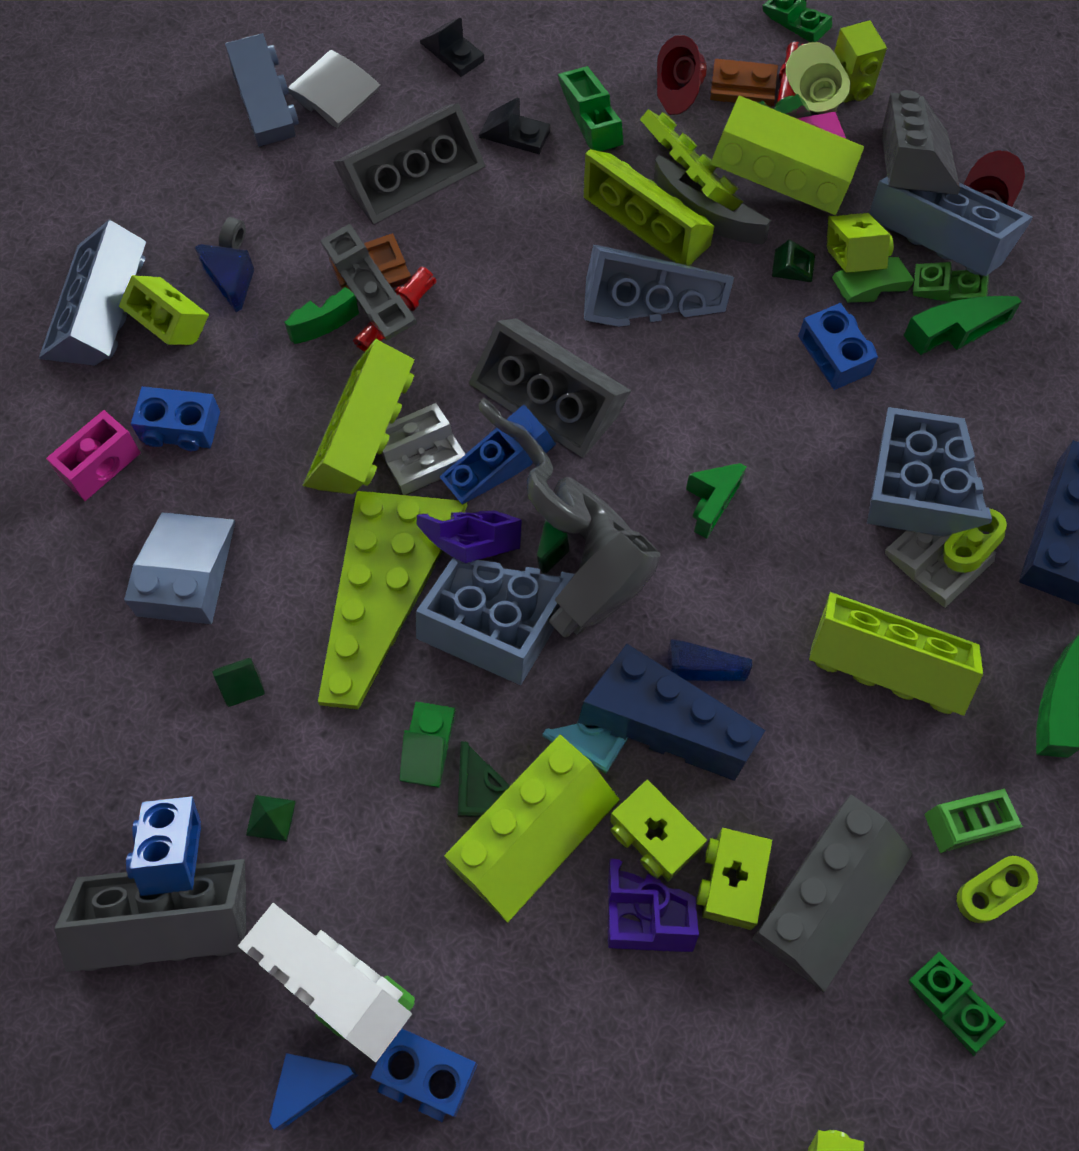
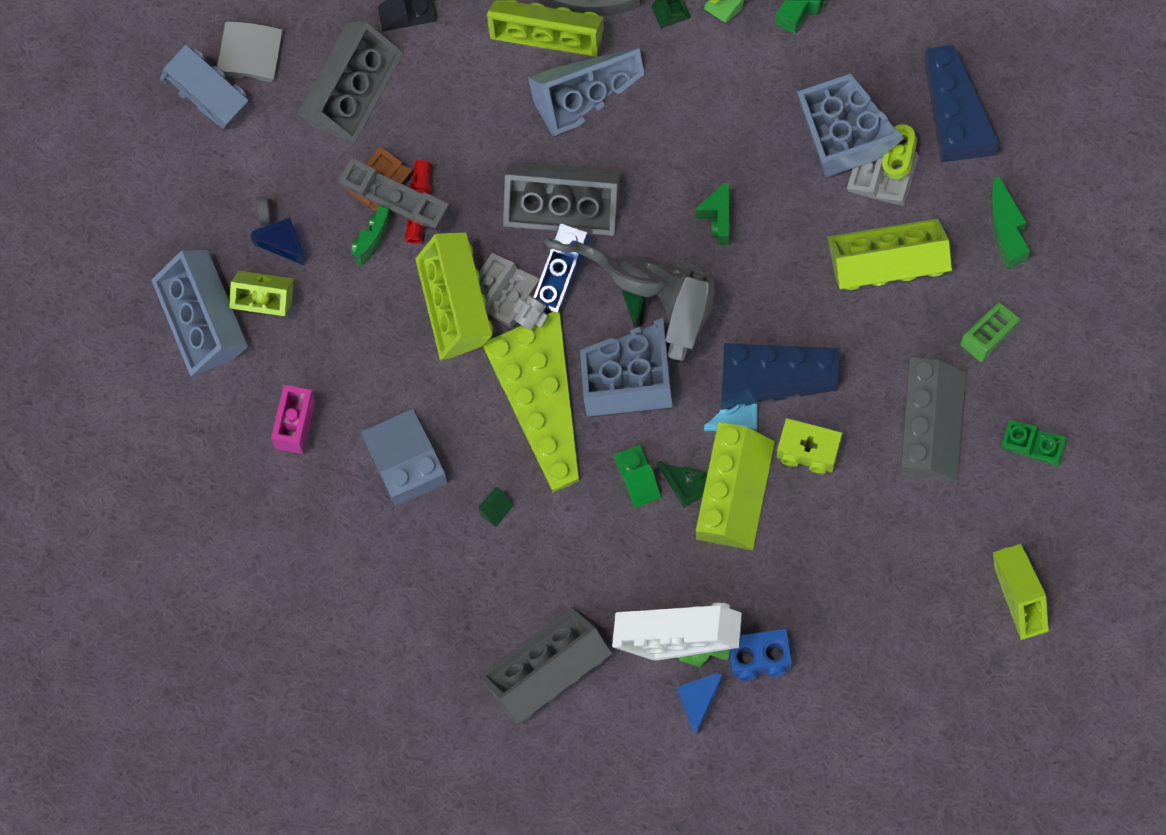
camera: 25 degrees left, 5 degrees up
(165, 846) = (525, 622): blue brick -> none
(176, 412) = (322, 357): blue brick -> none
(271, 818) = (571, 575): dark green slope -> none
(427, 483) = (529, 312): none -> light grey gear
(473, 534) = (580, 328): dark purple slope -> none
(664, 913) = (842, 491): dark purple slope -> none
(706, 664) = (777, 328): clear blue slope -> none
(750, 858) = (870, 429): lime brick -> none
(833, 348) = (733, 65): blue brick -> none
(996, 891) = (1023, 365): lime plate -> none

